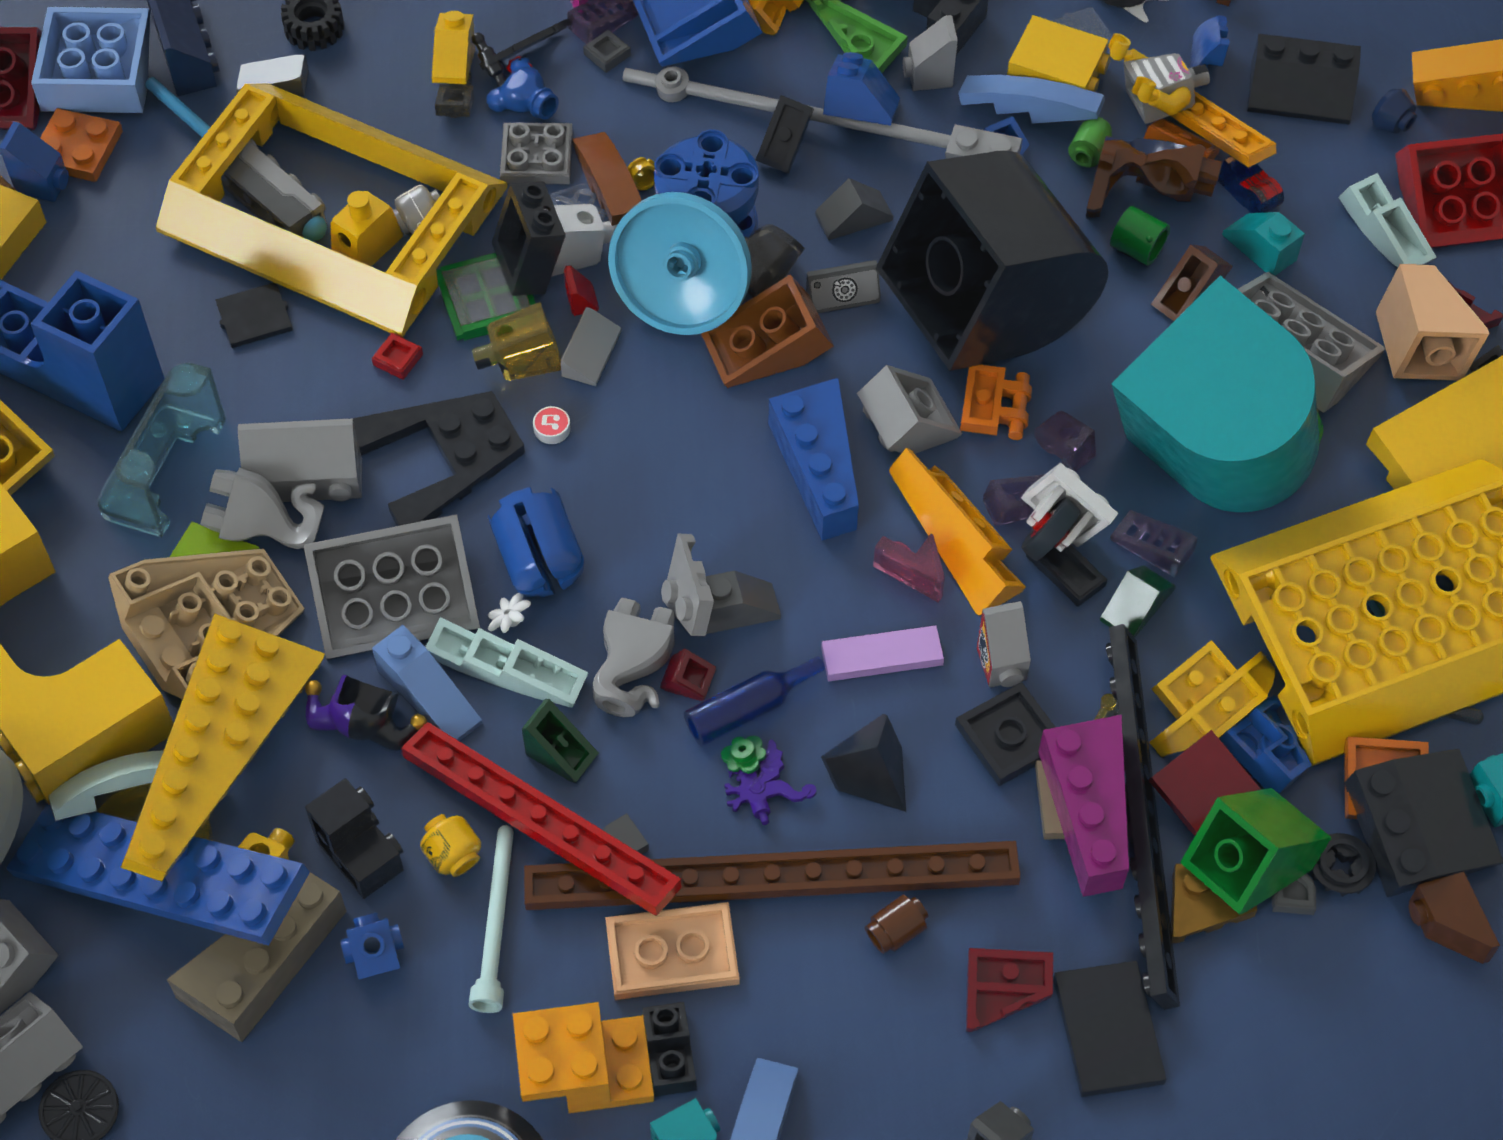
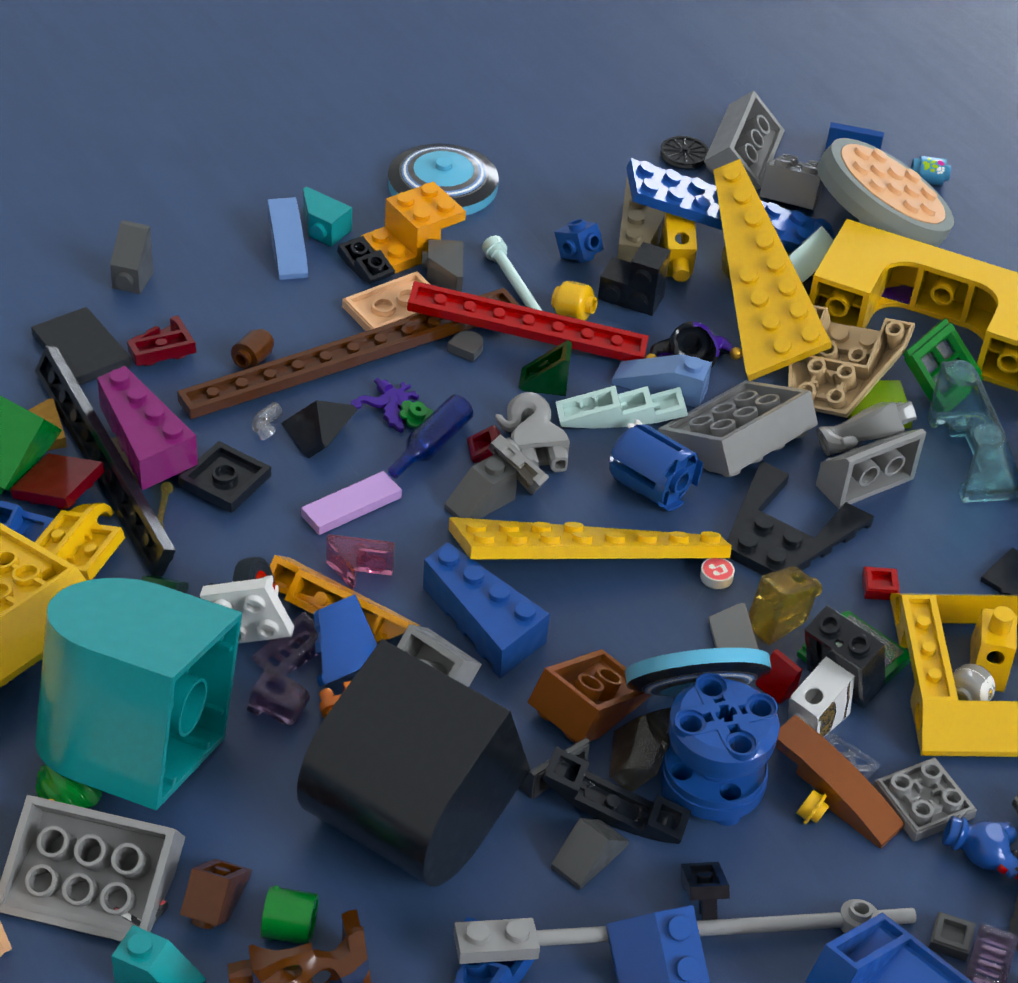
camera: 150 degrees right, 15 degrees down
(98, 559) = (933, 348): none -> green piece
(572, 974) = (444, 263): none -> dark grey slope
(728, 506) = (575, 541): none -> yellow wing
(819, 240) = (612, 804): none -> black slope
(932, 806) = (262, 420): none -> clear arm
(980, 464) = (342, 639): none -> blue slope
(1004, 645) = (257, 517): light grey slope -> none

